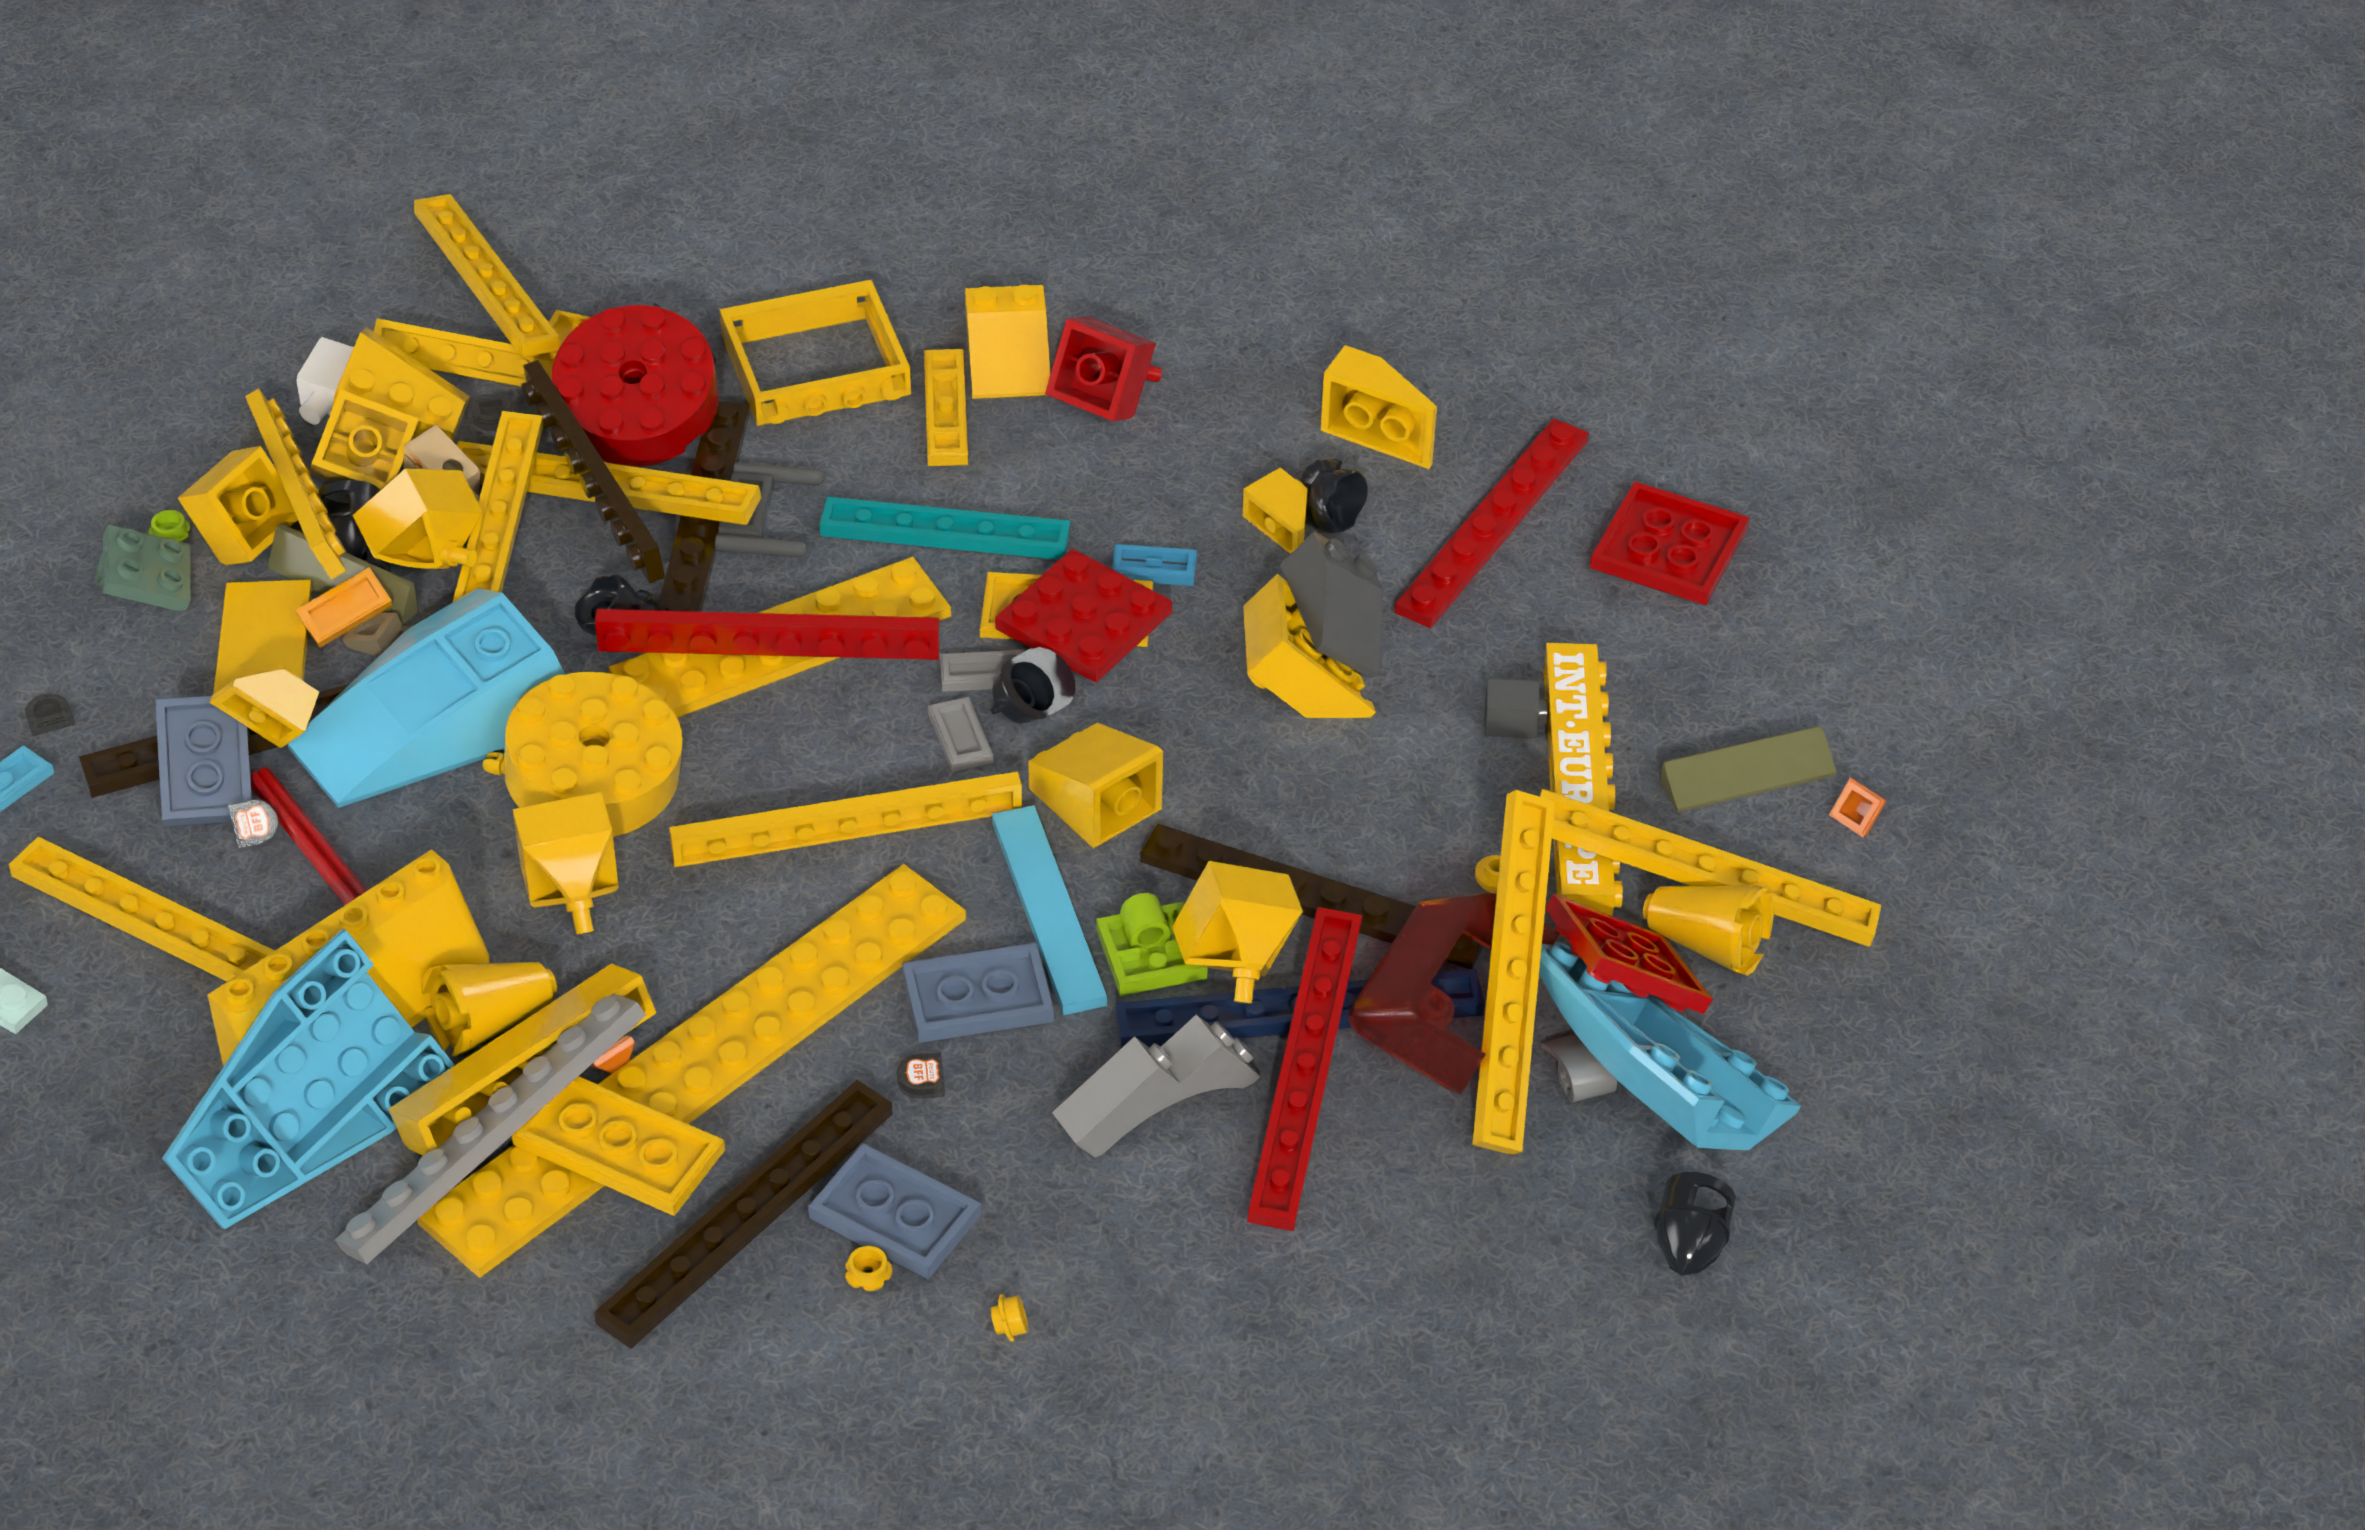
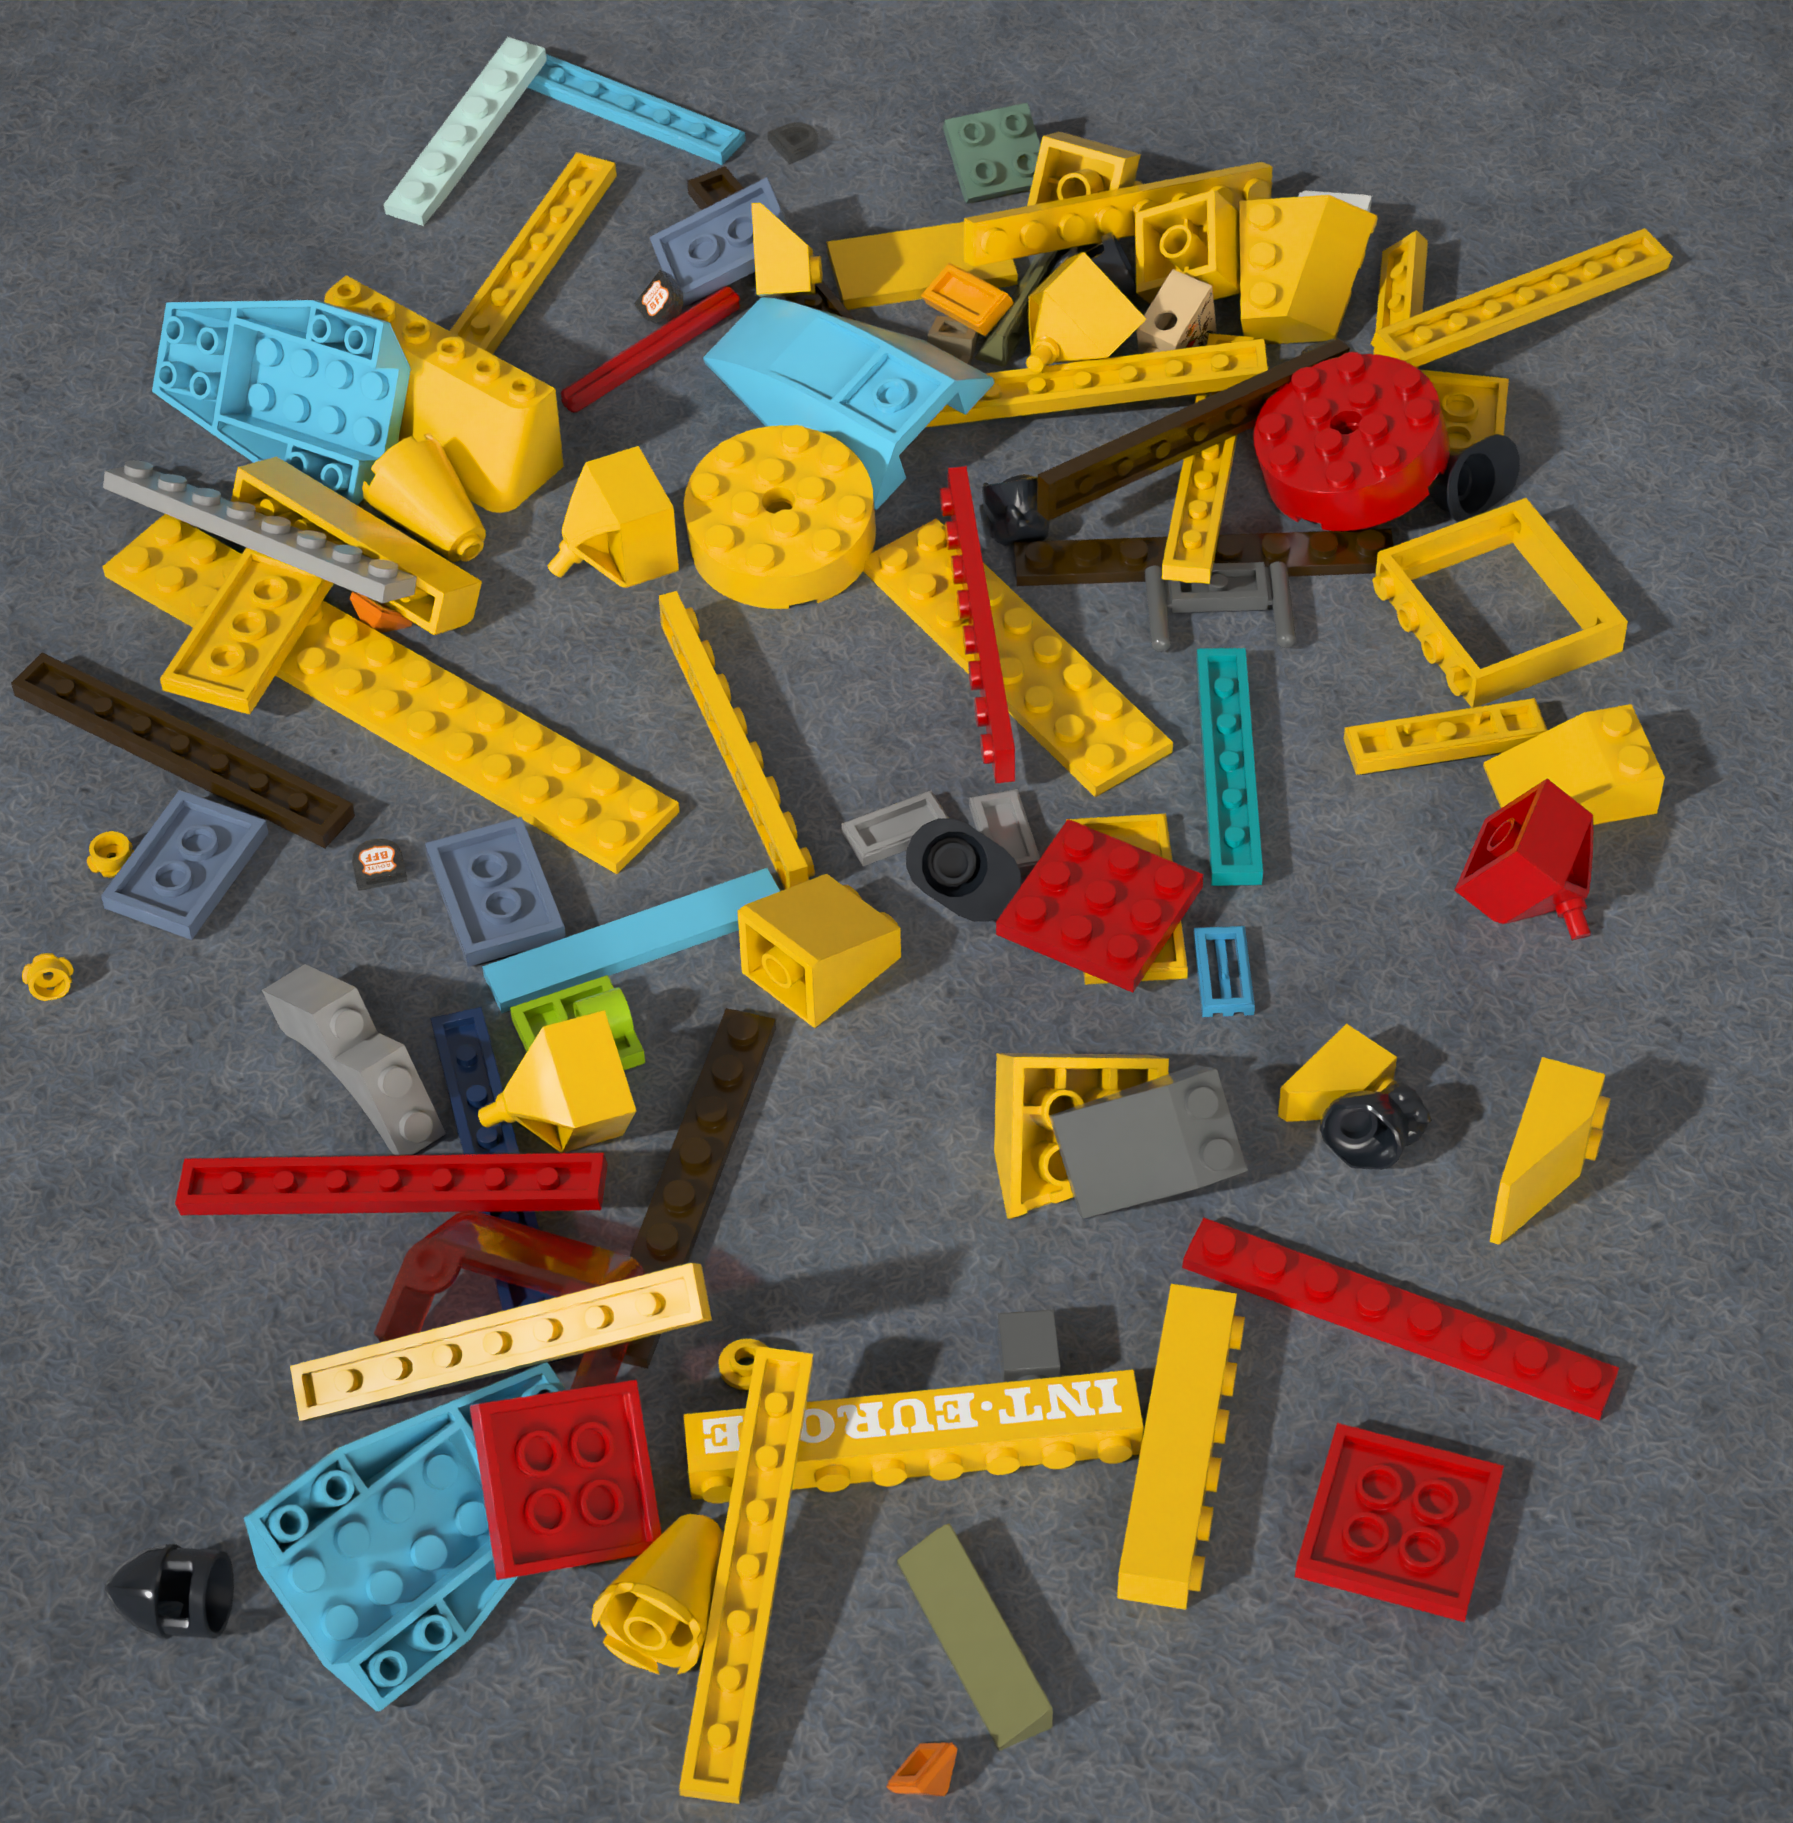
camera: 85 degrees right, 5 degrees up
(1627, 643) = (1178, 1447): none -> yellow brick

